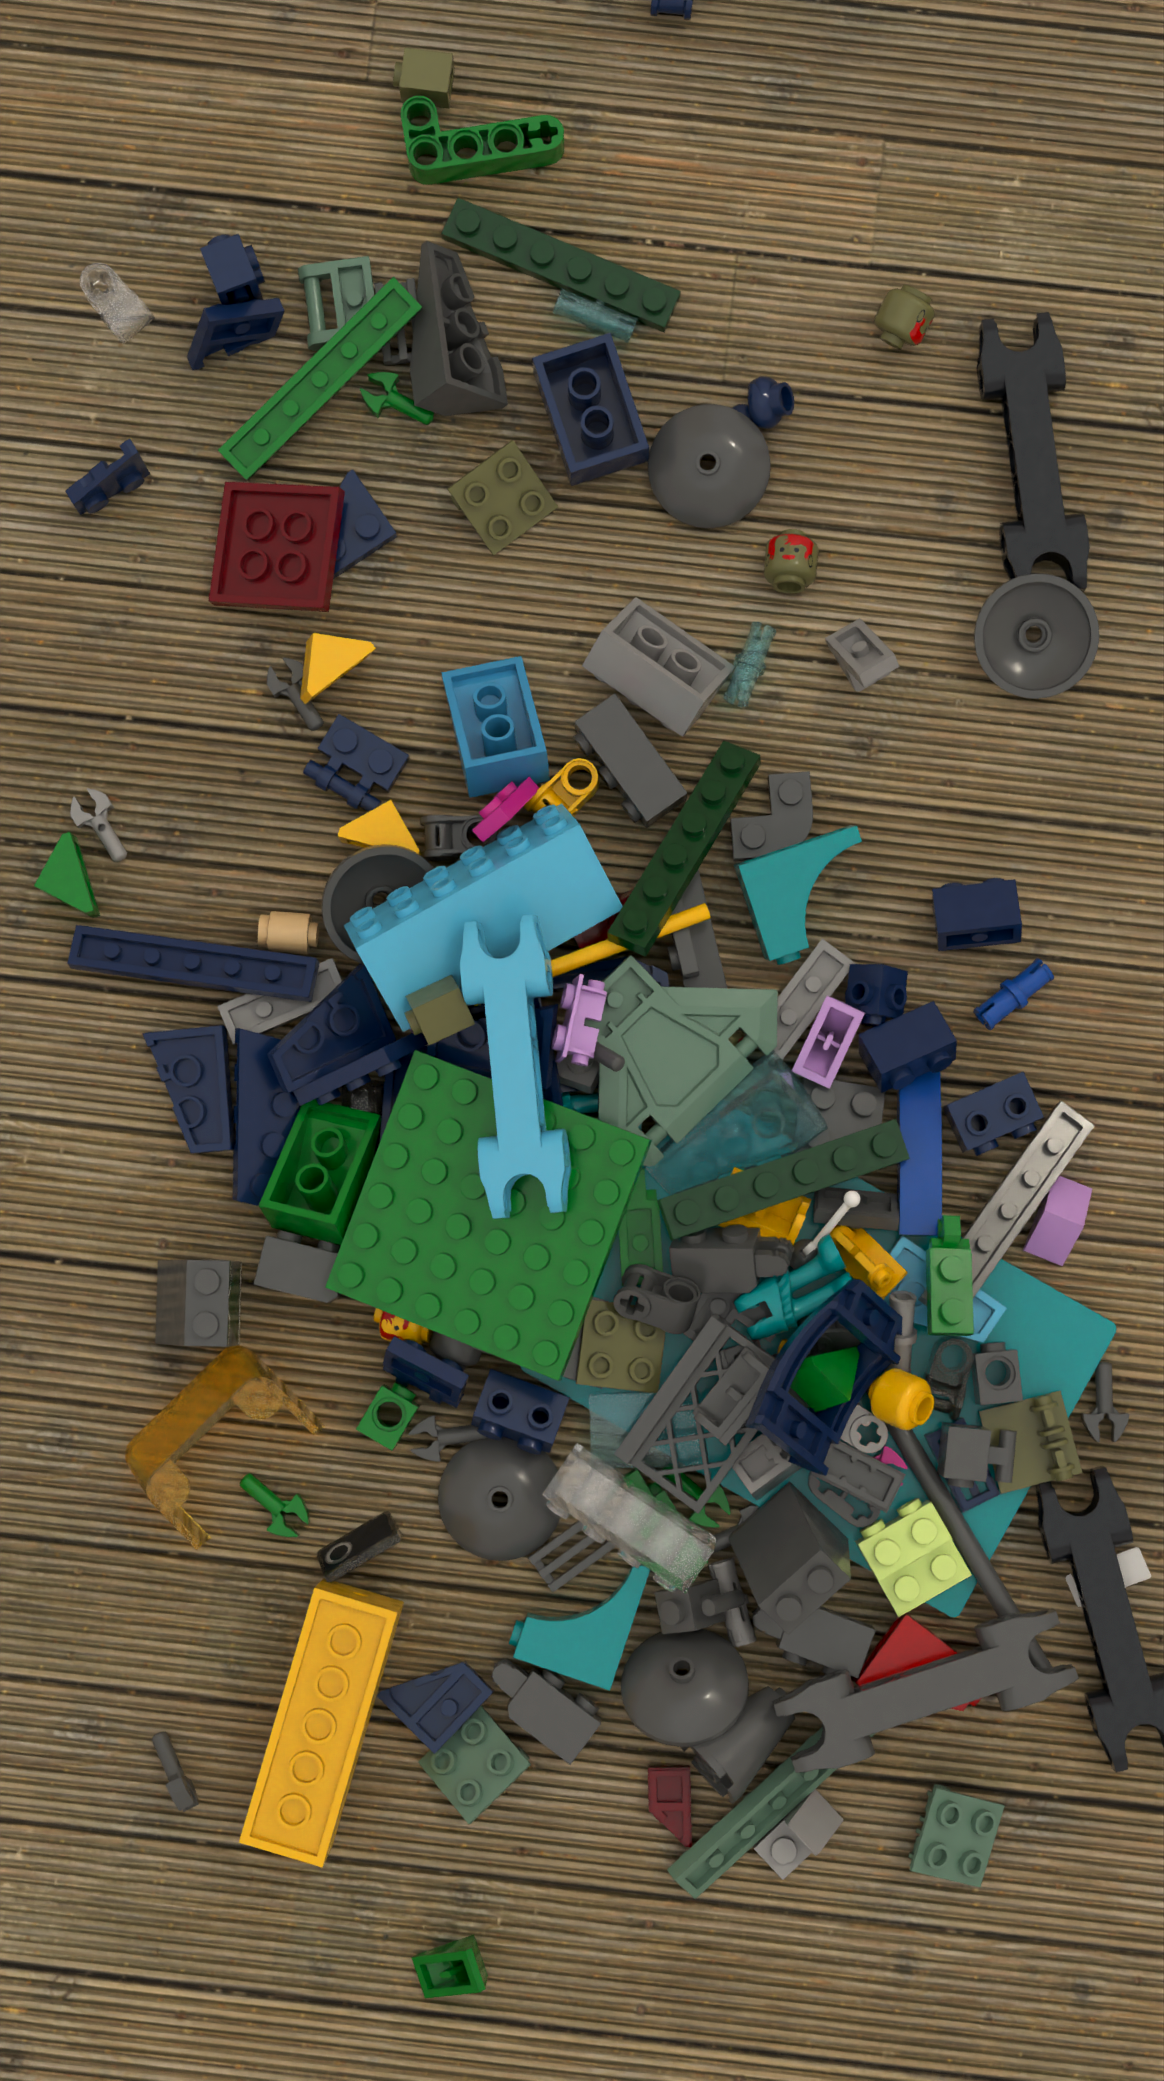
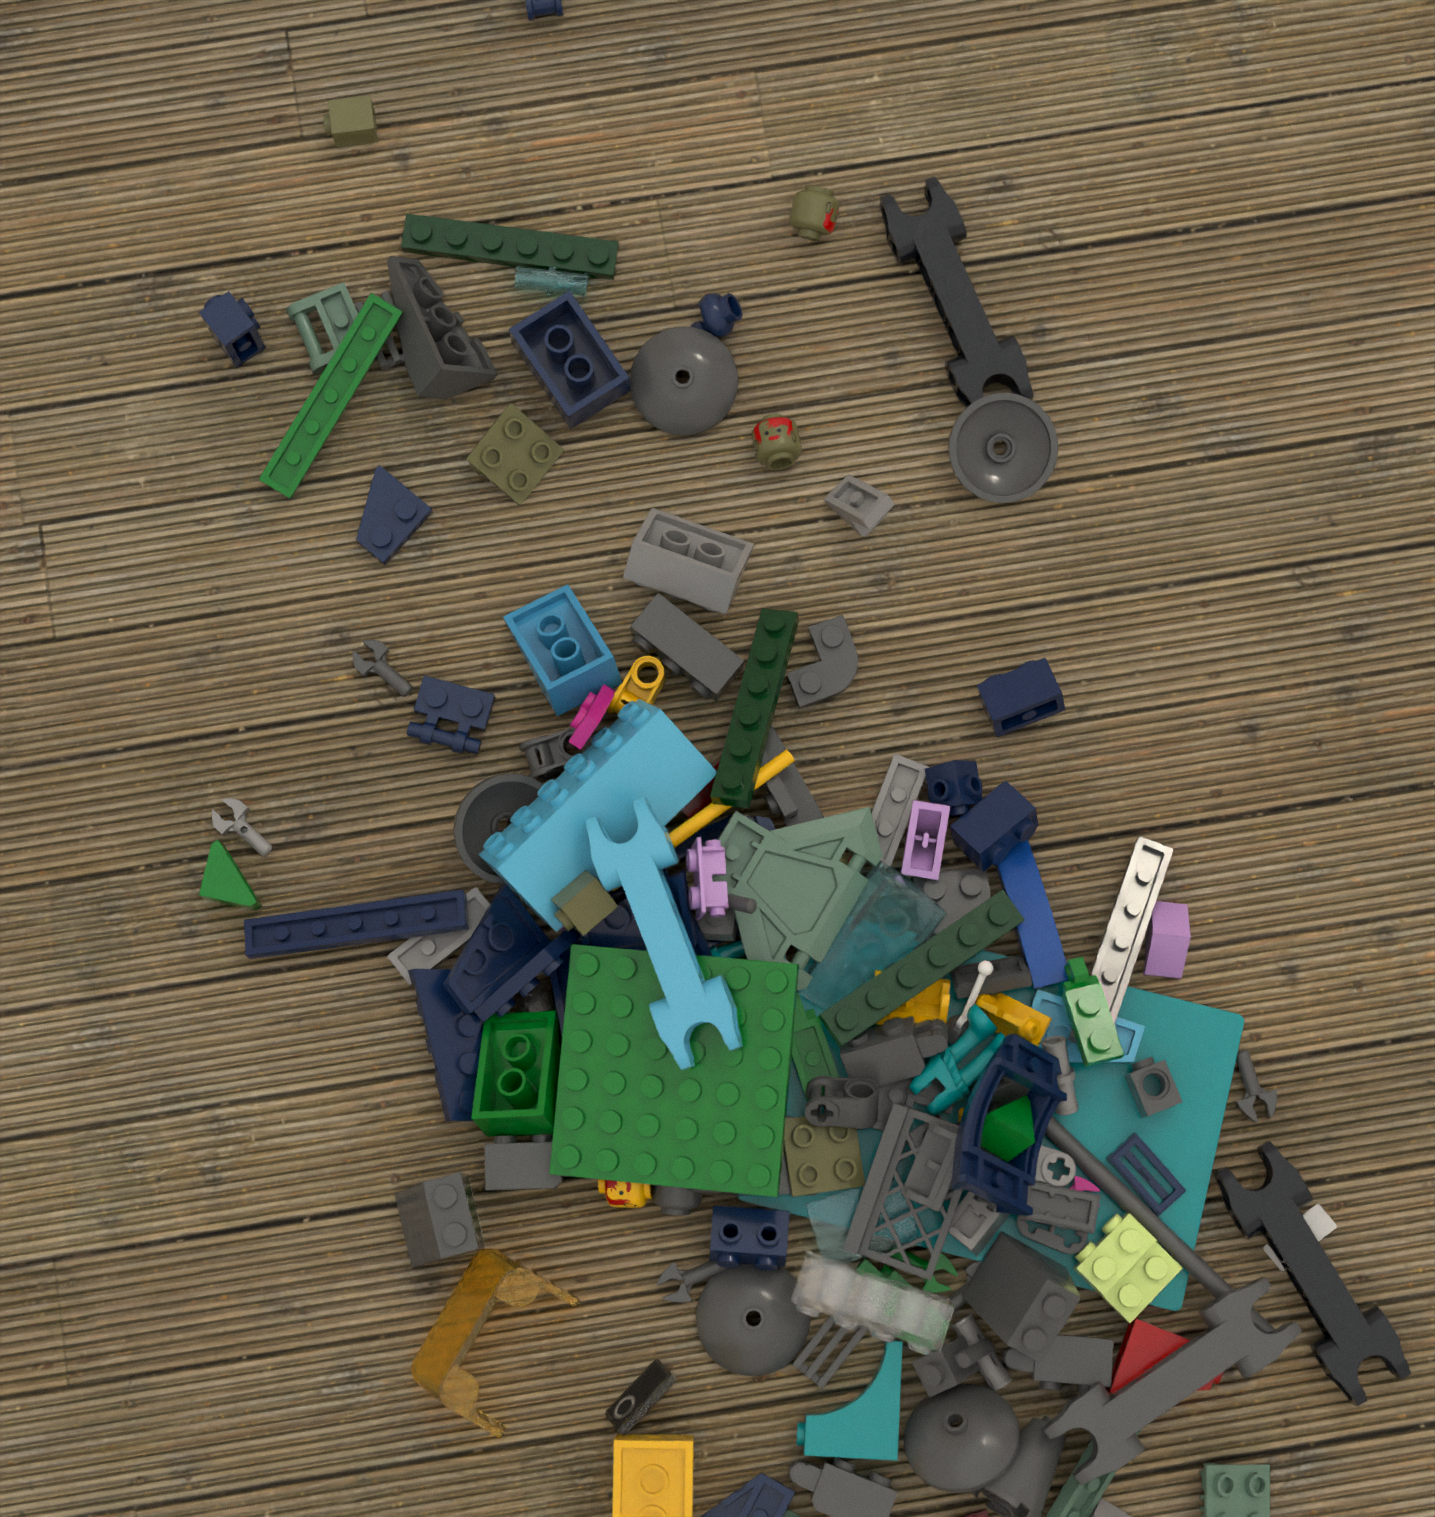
camera: 20 degrees left, 5 degrees down
(106, 480) = (169, 530): dark blue wing -> none
(117, 305) = (139, 381): clear piece -> none
(199, 1084) = (388, 1028): dark blue wing -> none
(234, 328) = (245, 372): dark blue wing -> none
(276, 546) = (331, 547): dark red plate -> none
(276, 1506) = (557, 1381): green bar -> none
(288, 932) = (431, 875): tan brick -> none
(328, 660) = (402, 632): yellow slope -> none
(372, 1425) = (635, 1290): green brick -> none
(378, 827) = (485, 762): yellow slope -> none
(393, 399) = (397, 396): green bar -> none
(413, 1366) = (646, 1222): dark blue plate -> none
(482, 139) = (414, 160): green beam -> none
(749, 664) = (765, 538): clear light blue pin -> none
(779, 889) = (846, 720): teal arch -> none
(901, 1399) = (1077, 1130): yellow head -> none
(948, 1380) = (1110, 1104): clear smoke piece -> none
(967, 1452) = (1148, 1161): dark grey brick -> none
(993, 1113) = (1084, 862): dark blue brick -> none
(1013, 994) = (1071, 756): blue pin -> none
(1043, 1440) = (1199, 1137): olive hinge -> none

